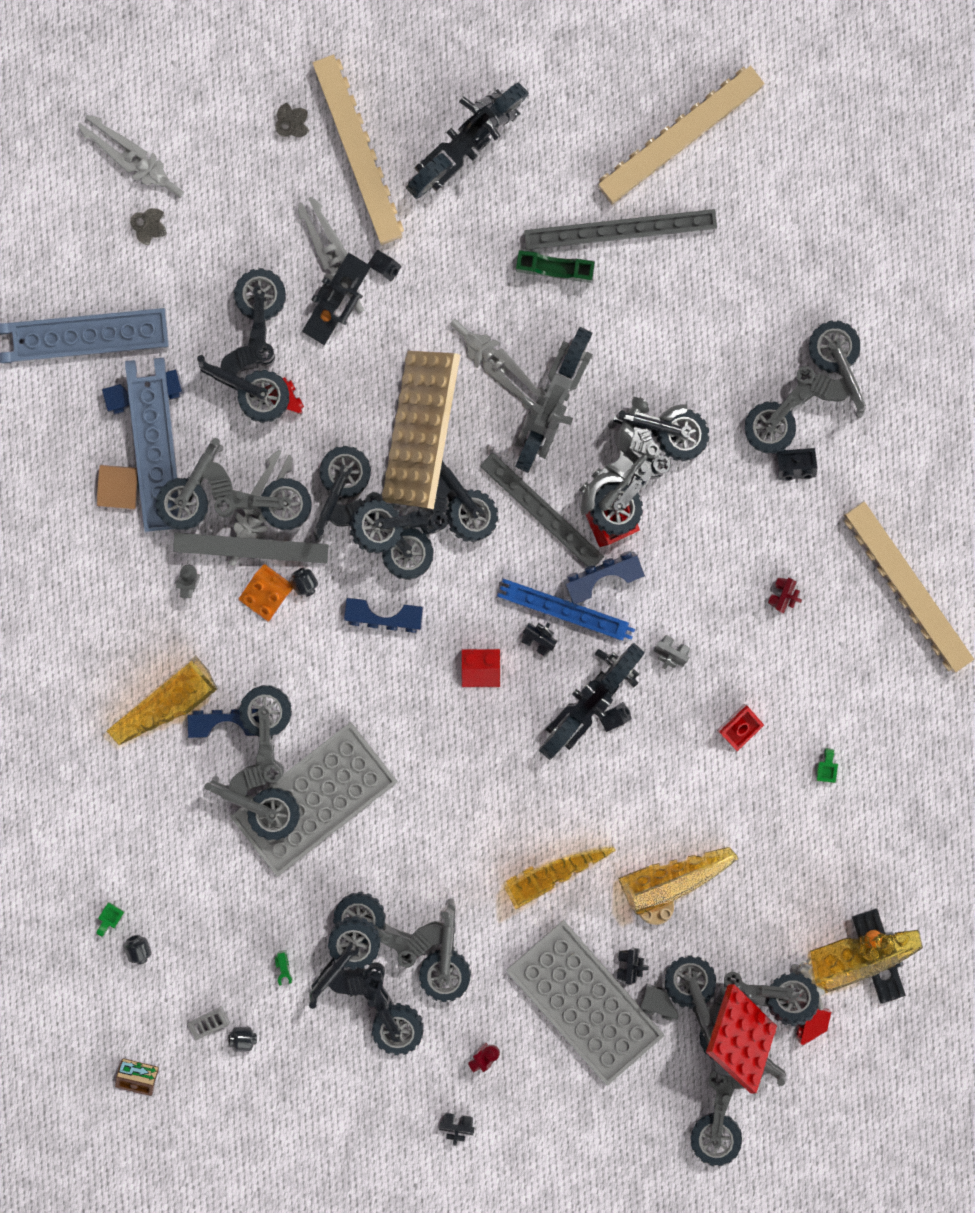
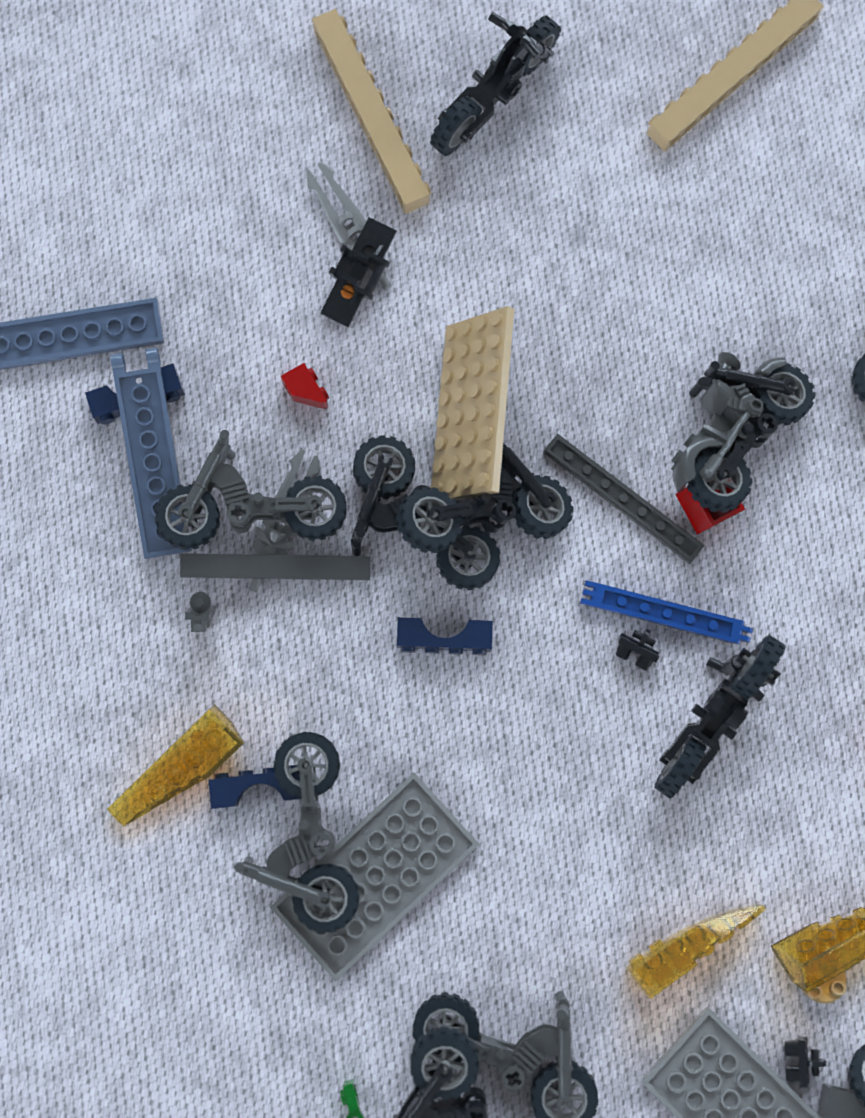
camera: 10 degrees left, 10 degrees down
(110, 916) = (121, 1055): green plate -> none
(117, 487) = (109, 508): medium nougat slope -> none
(137, 949) = (159, 1096): black head -> none
(147, 170) = (128, 149): light grey sword -> none
(151, 225) = (136, 210): clear smoke plate -> none
(252, 355) = (265, 337): piece -> none
(266, 592) = (297, 621): orange bracket -> none
(293, 119) = (292, 88): clear smoke plate -> none
(304, 582) = (343, 604): black head -> none
(384, 265) = (412, 232): black bracket -> none
(480, 667) = (570, 691): red slope -> none
(482, 348) = (533, 316): light grey sword -> none
(549, 409) = (626, 366): dark grey piece -> none
(554, 267) = (634, 220): dark green arch -> none
(581, 585) = (683, 581): dark blue arch -> none
(616, 717) = (745, 739): black bracket -> none
(620, 229) = (678, 175): dark grey plate -> none
(670, 655) = (801, 657): dark grey hips -> none

